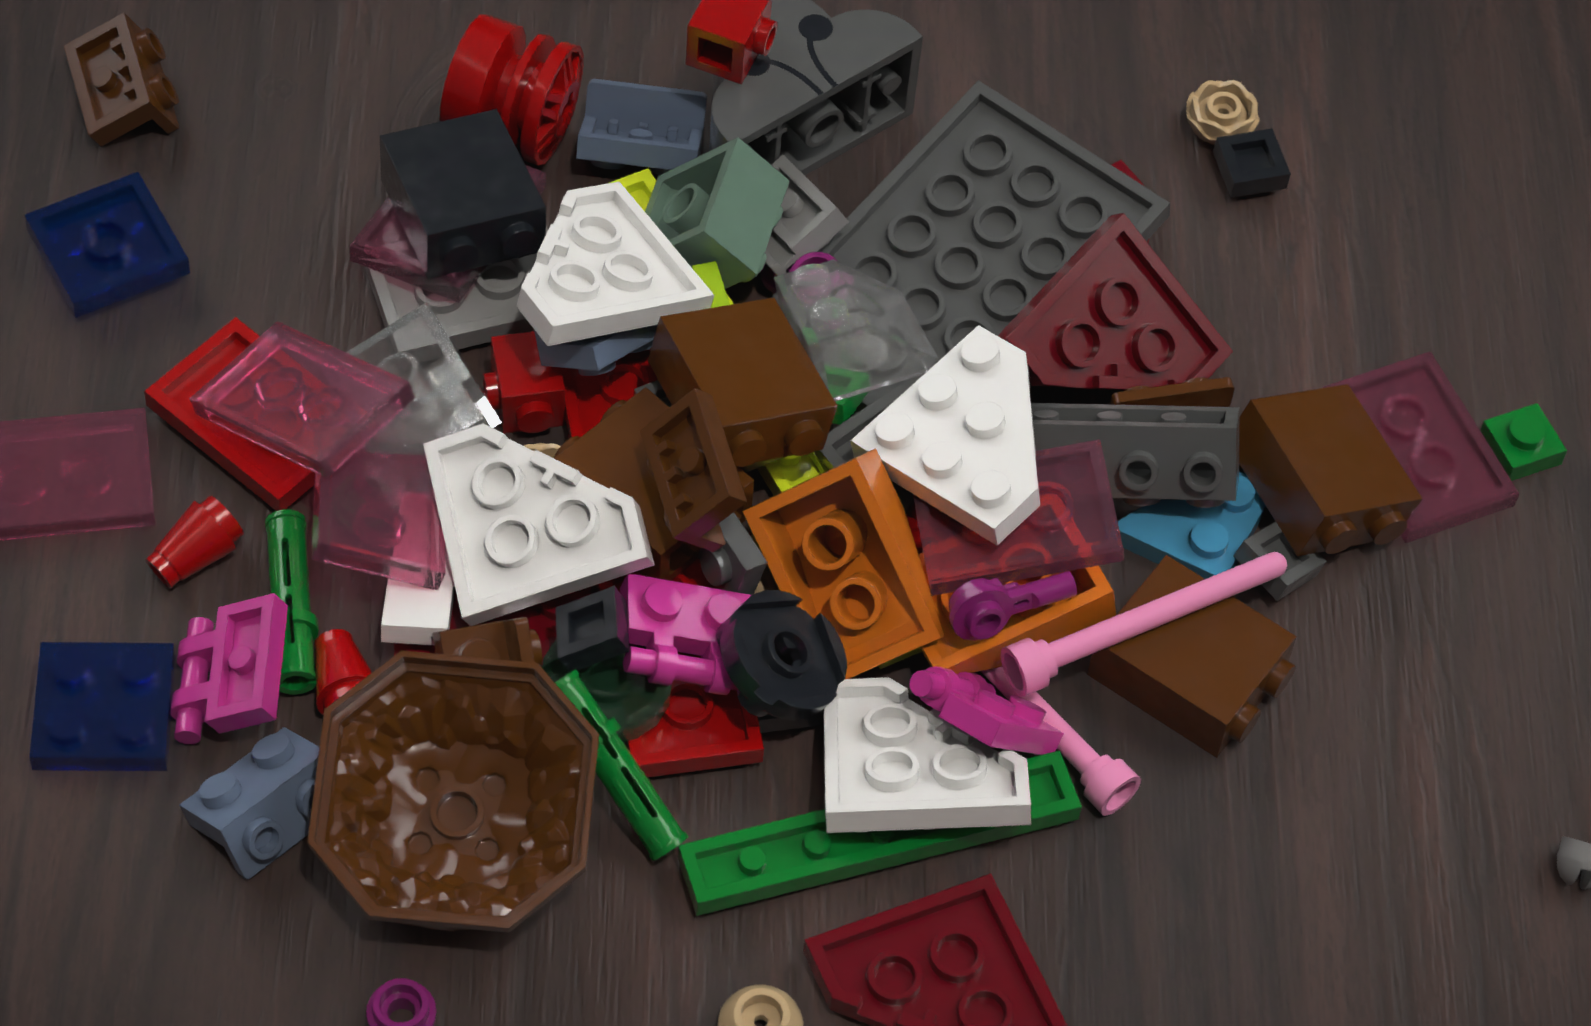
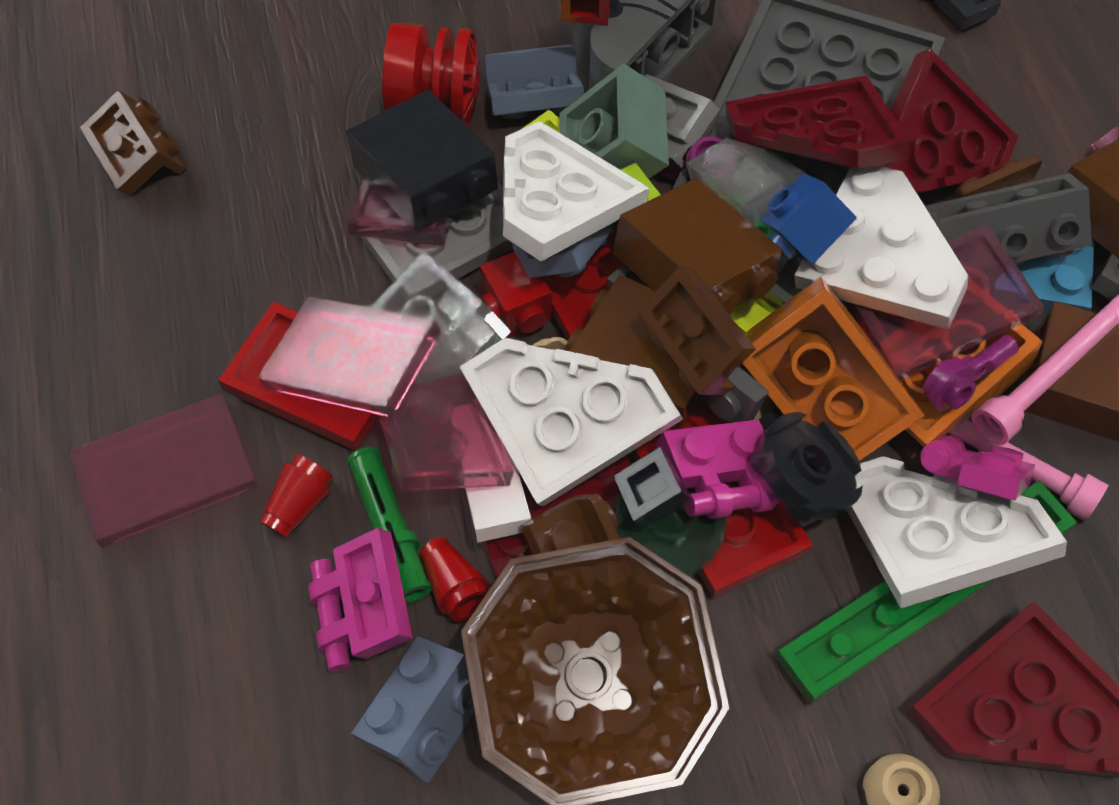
camera: 10 degrees left, 5 degrees up
(103, 706) = (259, 660): clear blue plate -> none
(107, 244) = (155, 270): clear blue plate -> none
(623, 776) = (724, 612): green pin -> none
(877, 377) = (806, 218): none -> blue brick
(961, 271) = (825, 121): none -> dark red plate

